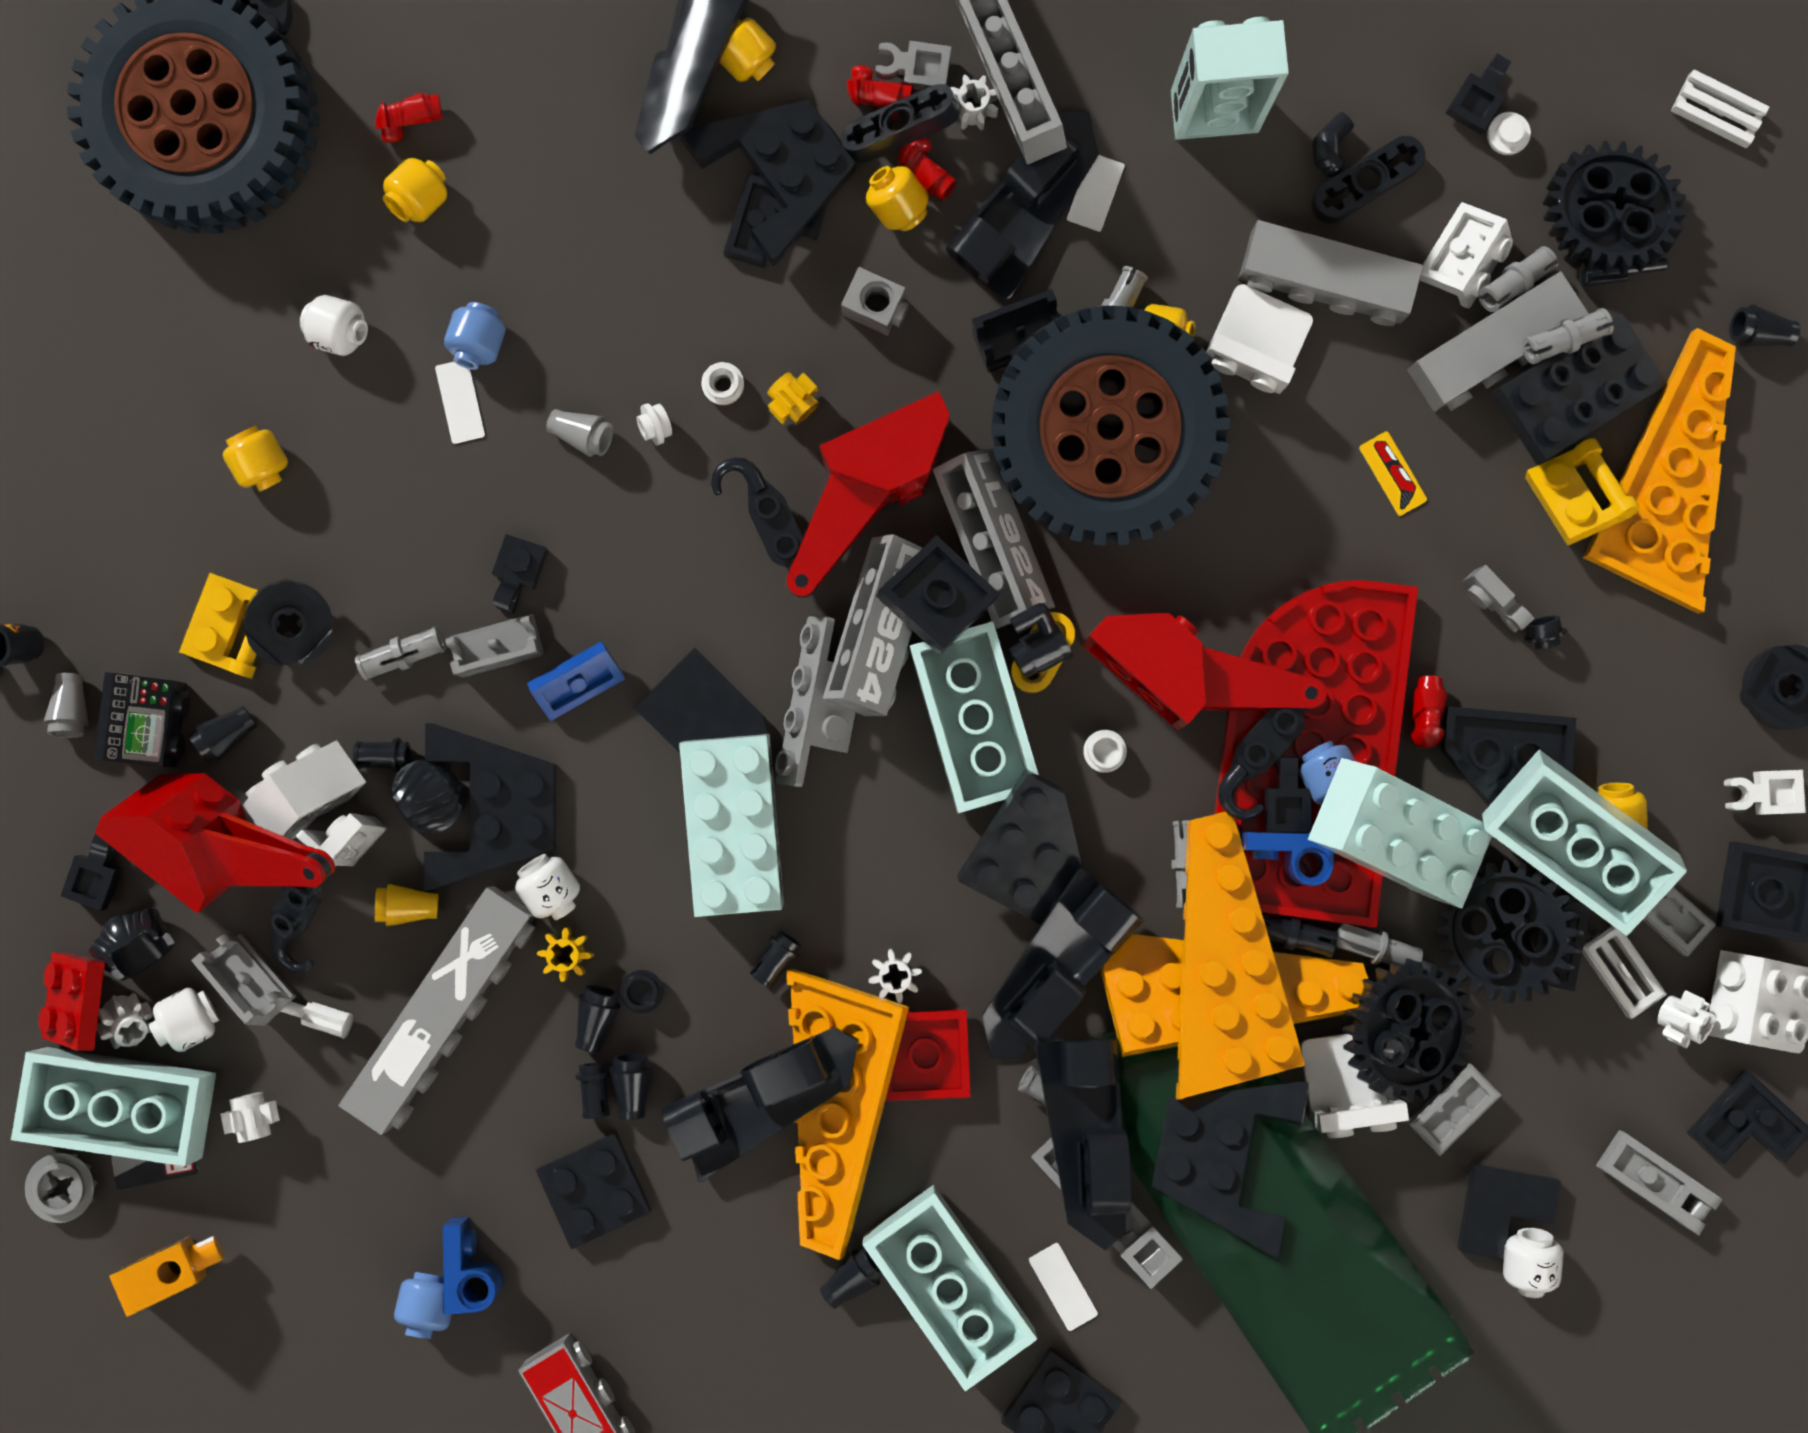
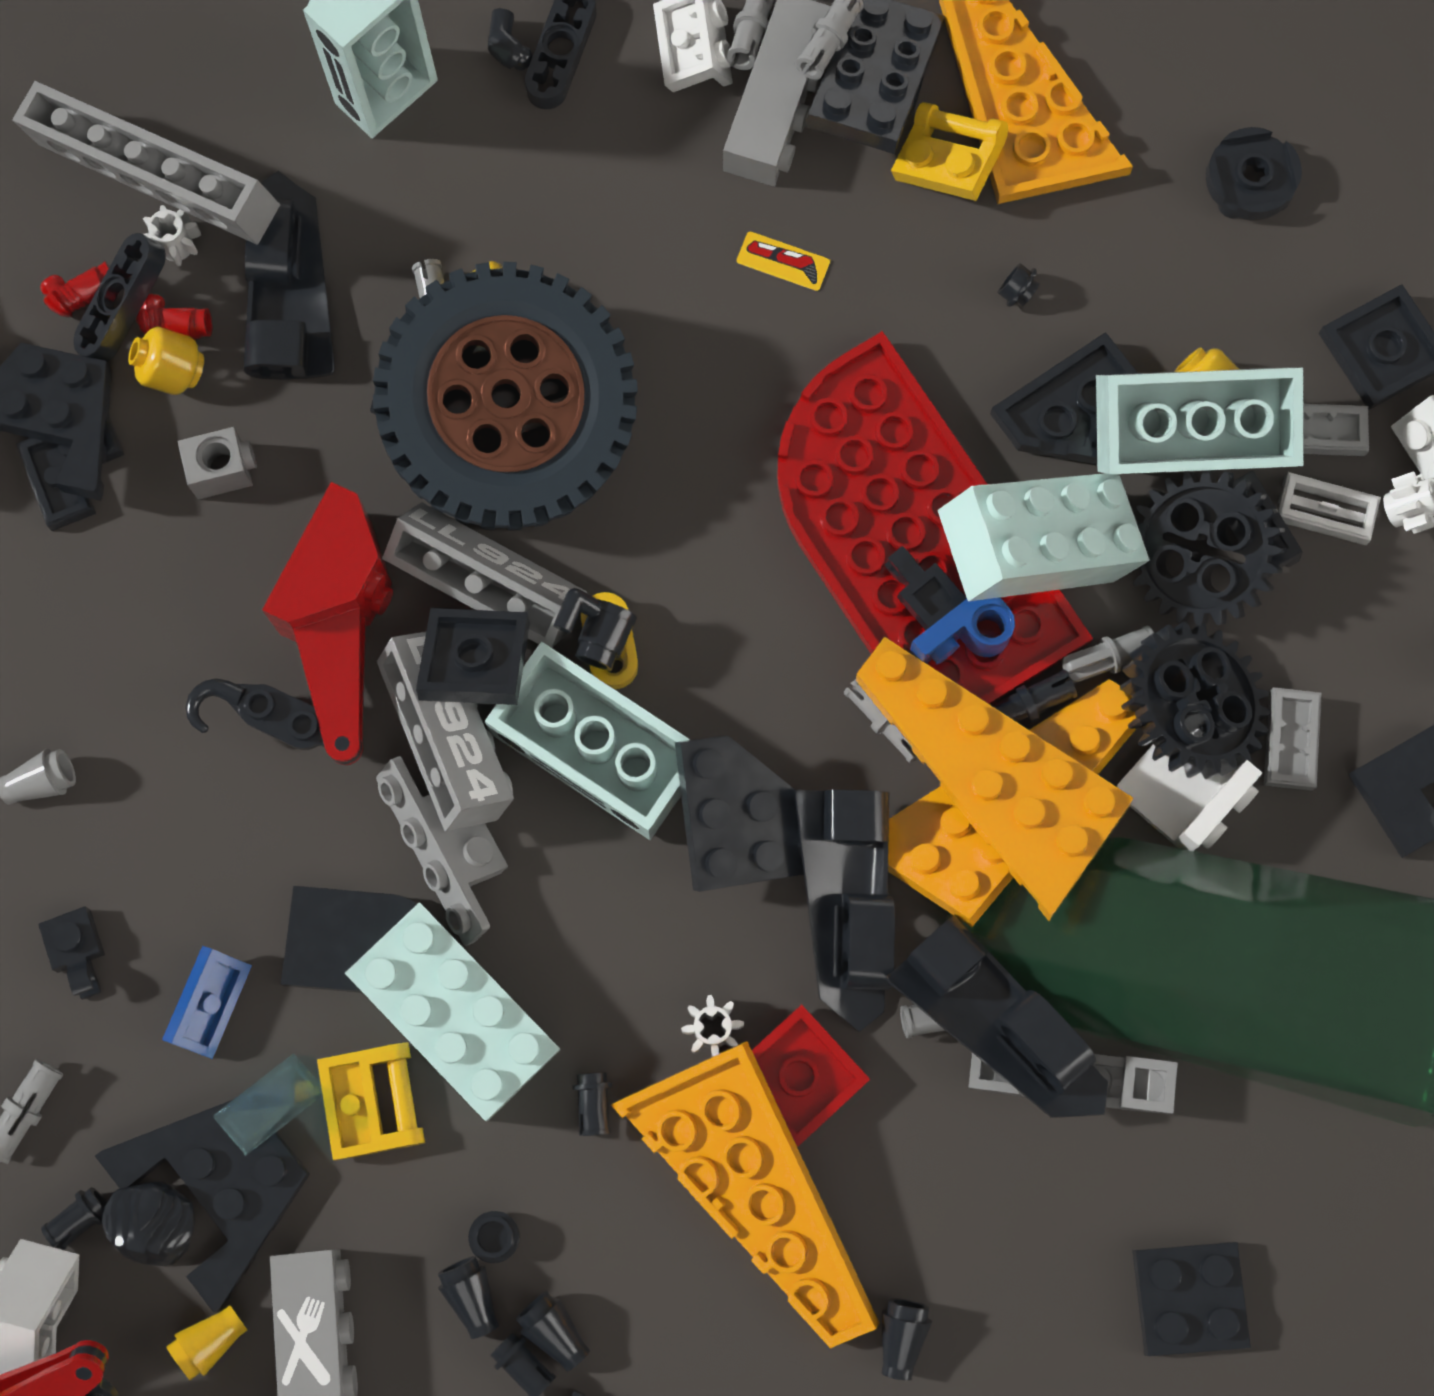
camera: 40 degrees left, 10 degrees down
(345, 838) = (101, 1316): white bracket -> none
(495, 646) = (107, 1034): light grey hinge -> none
(547, 887) = (328, 1211): white head -> none
(564, 783) = (269, 1104): none -> clear light blue slope
(576, 956) = (383, 1270): yellow gear -> none
(618, 830) = (353, 1102): none -> yellow plate
(654, 423) = (100, 719): white plate -> none
(719, 371) = (126, 628): white plate -> none
(760, 1101) = (683, 1244): black panel -> none
(793, 398) = (209, 598): yellow gear -> none
(922, 65) = (97, 242): light grey plate -> none
(949, 1288) = (996, 1267): light aqua brick -> none
(1009, 326) = (350, 392): black hinge -> none
(1063, 1286) = (1097, 1184): white sticker -> none
(1096, 194) = (339, 232): white sticker -> none
(1104, 751) = (734, 681): white plate -> none
(1180, 677) = (739, 563): red slope -> none
(1208, 1152) = (1118, 945): black wing -> none
(1259, 339) = (578, 236): white bracket -> none
(1320, 768) = (929, 541): medium blue head -> none
(1330, 273) = (591, 140): light grey brick -> none
(1428, 711) = (980, 426): red arm -> none
(1490, 592) = (950, 288): light grey plate -> none
(1772, 792) = (1314, 265): white plate -> none

